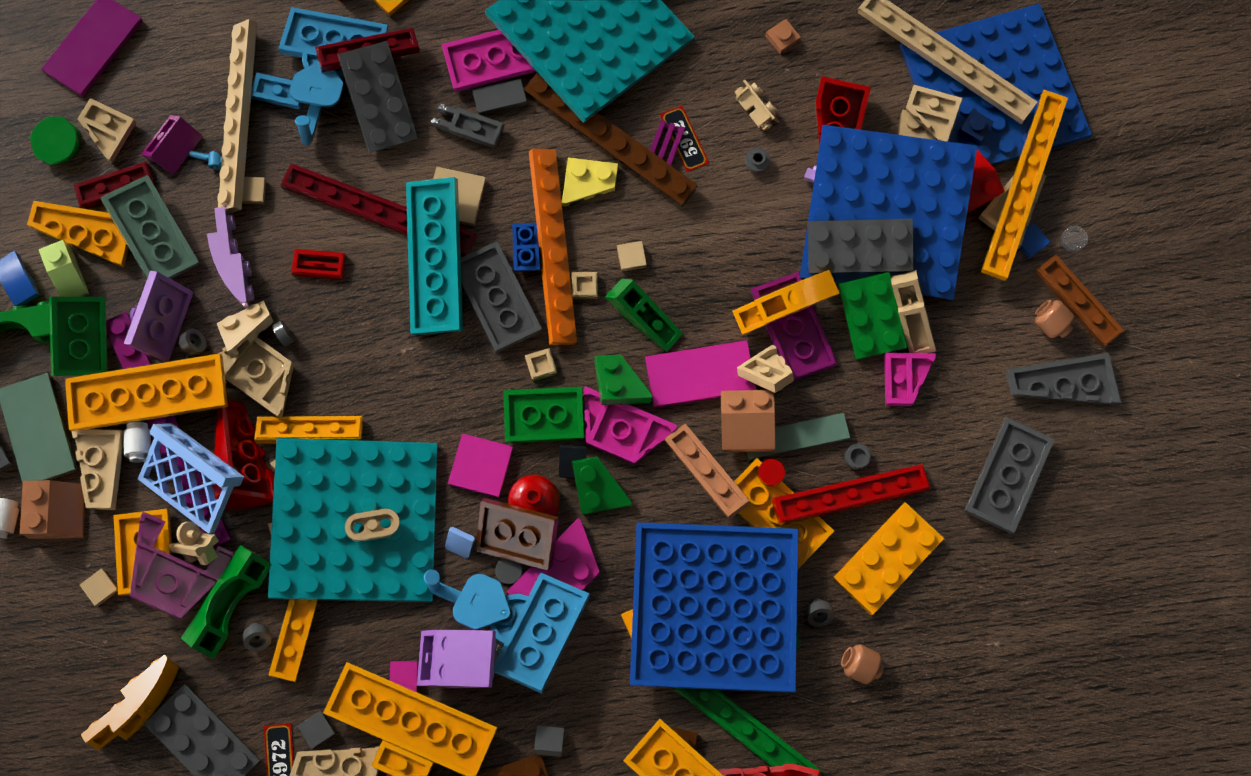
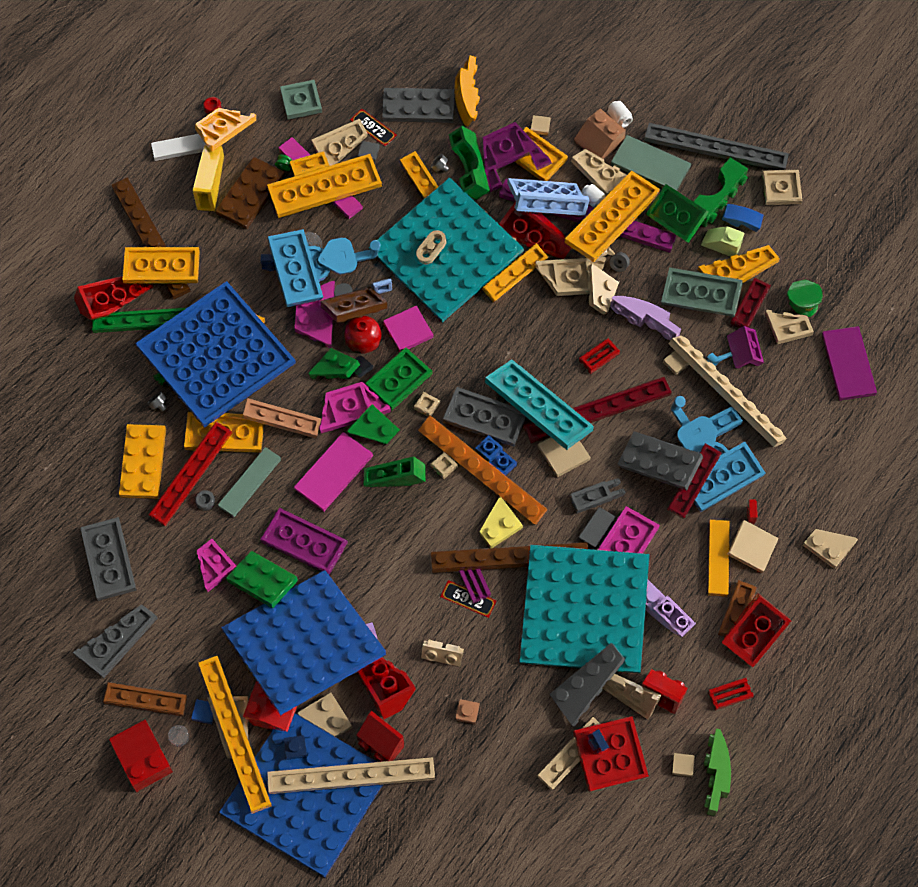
camera: 140 degrees right, 10 degrees down
(158, 317) = (647, 254): medium lavender plate -> none
(194, 544) = (510, 170): tan hips -> none
(283, 333) = (578, 304): dark grey tile -> none
(456, 659) = (326, 222): medium lavender slope -> none
(549, 741) = (246, 233): dark grey tile -> none
(558, 678) = (267, 262): none -> dark blue plate
(631, 256) = (433, 502): tan tile -> none
(748, 421) = (282, 461): nougat slope -> none
(757, 166) = (412, 624): dark grey plate -> none
(767, 370) = (294, 495): tan wing -> none
(771, 472) = (245, 445): red tile -> none
(786, 301) = (316, 541): light orange slope -> none
(860, 246) = (301, 605): dark grey plate -> none
(862, 664) = (112, 394): nougat head -> none
(889, 69) = (380, 738): none -> red slope
(913, 312) = (239, 598): tan slope -> none
(934, 111) = (329, 733): tan wing -> none
(1054, 319) = (151, 670): nougat head -> none
(1127, 246) = (140, 755): none -> red slope

